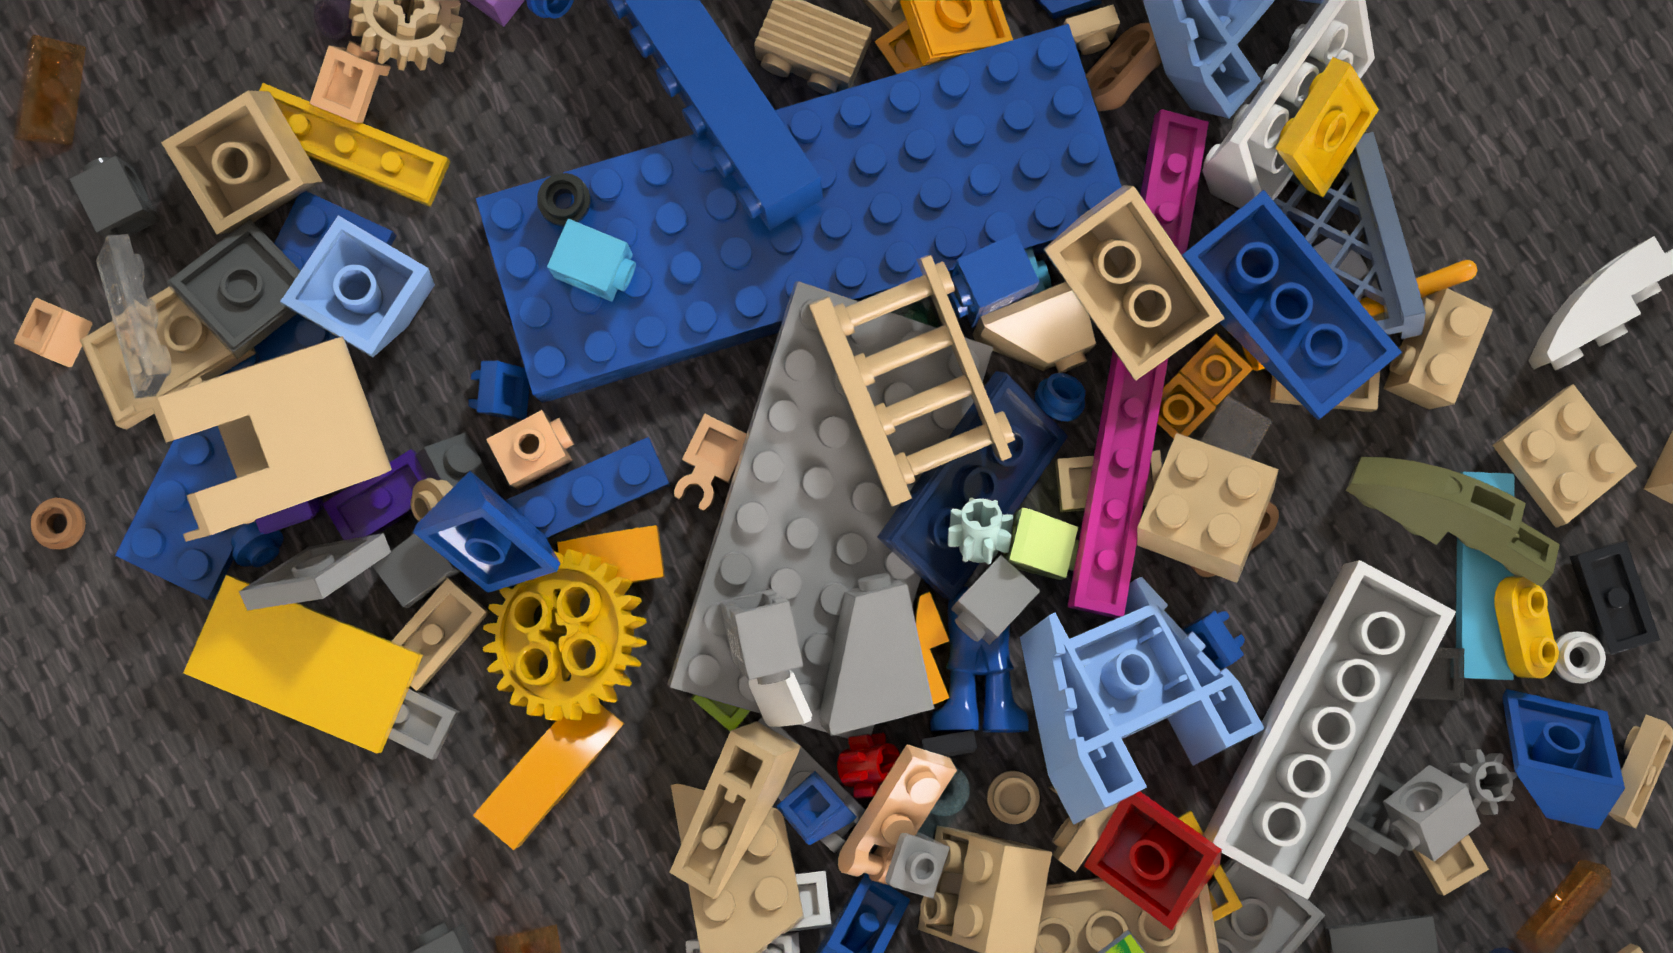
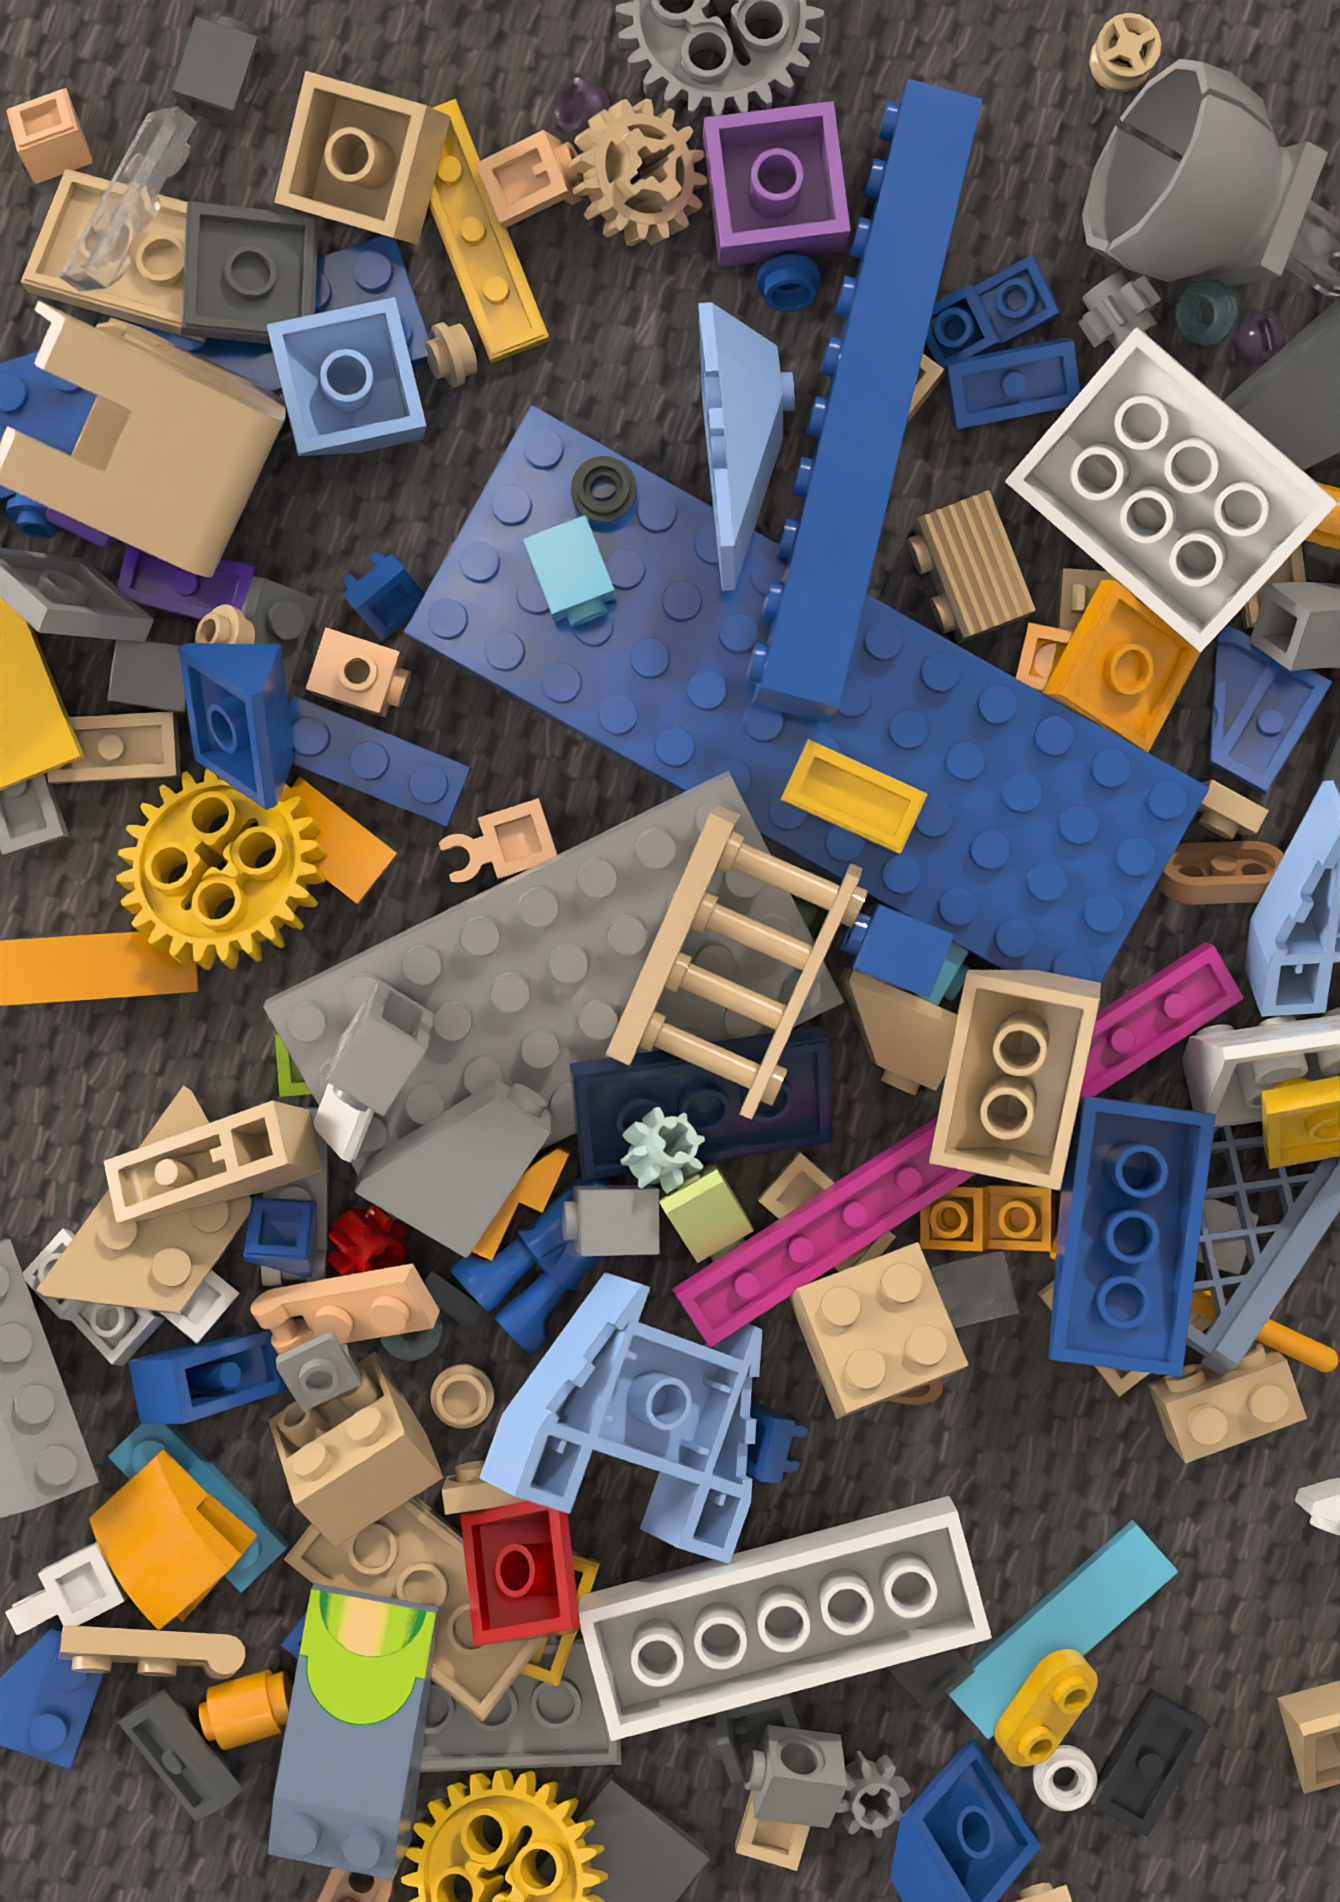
camera: 50 degrees right, 5 degrees up
(402, 221) = (451, 353): none -> tan plate
(601, 90) = (743, 427): none -> light blue wedge
(879, 225) = (853, 797): none -> yellow tile
(1061, 397) = (860, 1103): blue plate -> none
(1440, 501) = (1089, 1533): olive slope -> none
(1564, 456) = (1237, 1601): tan plate -> none

